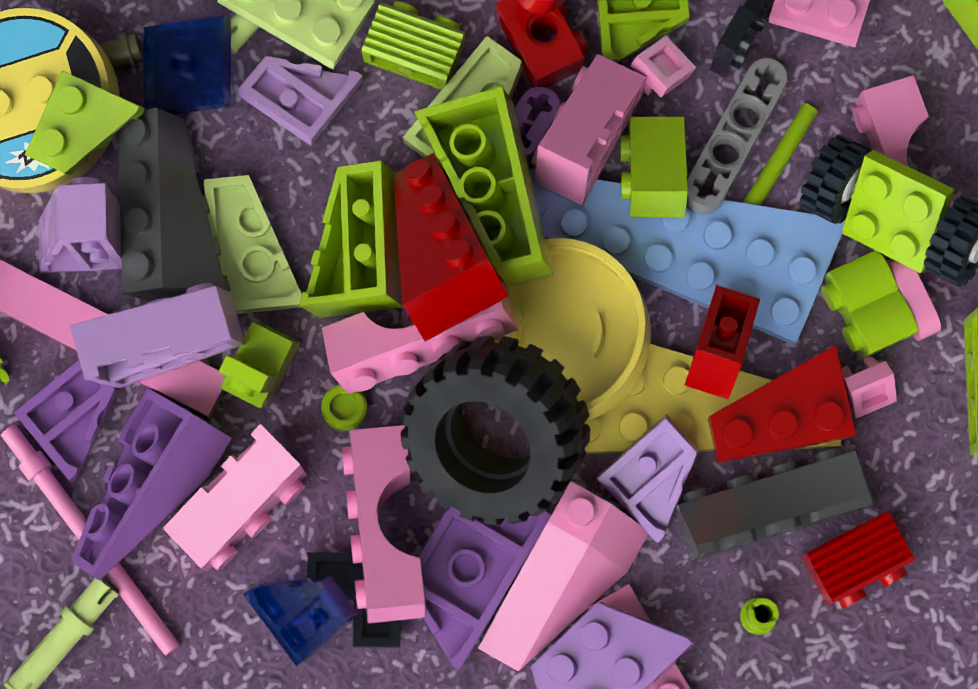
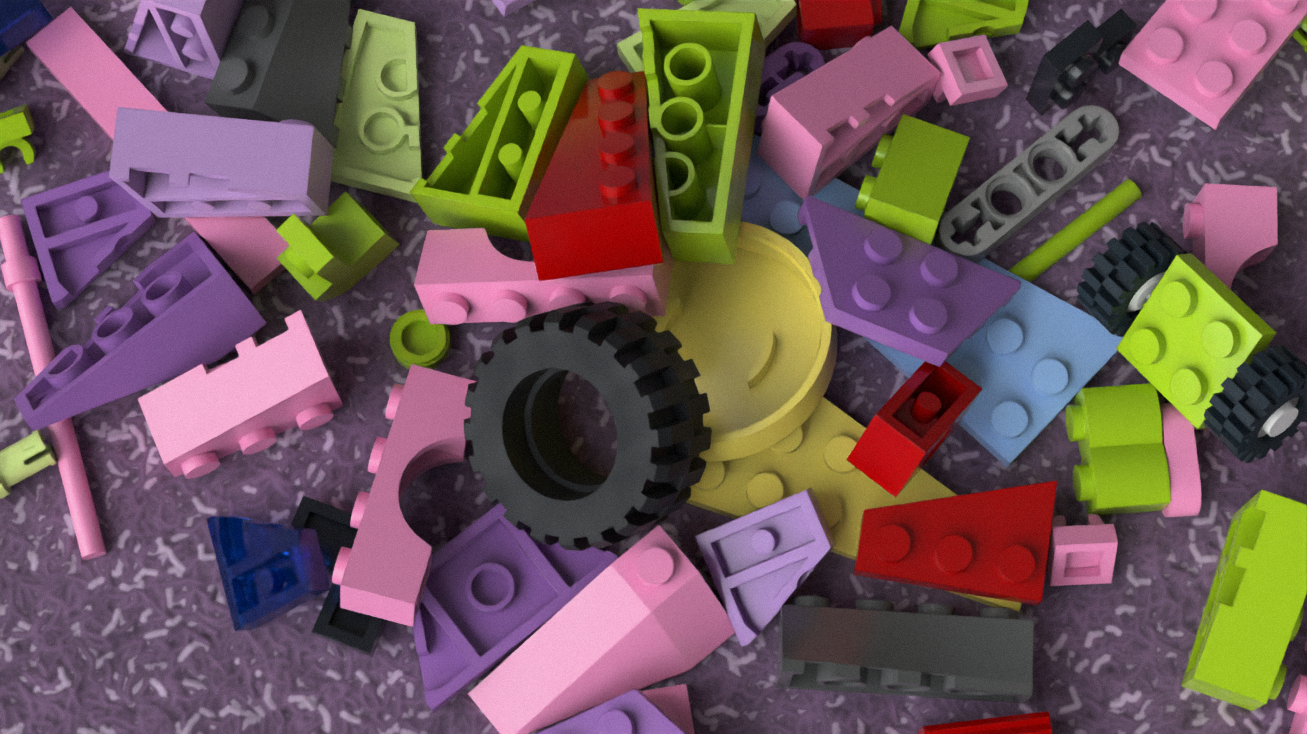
camera: 20 degrees right, 5 degrees down
(674, 246) = (897, 285): none -> medium lavender wing

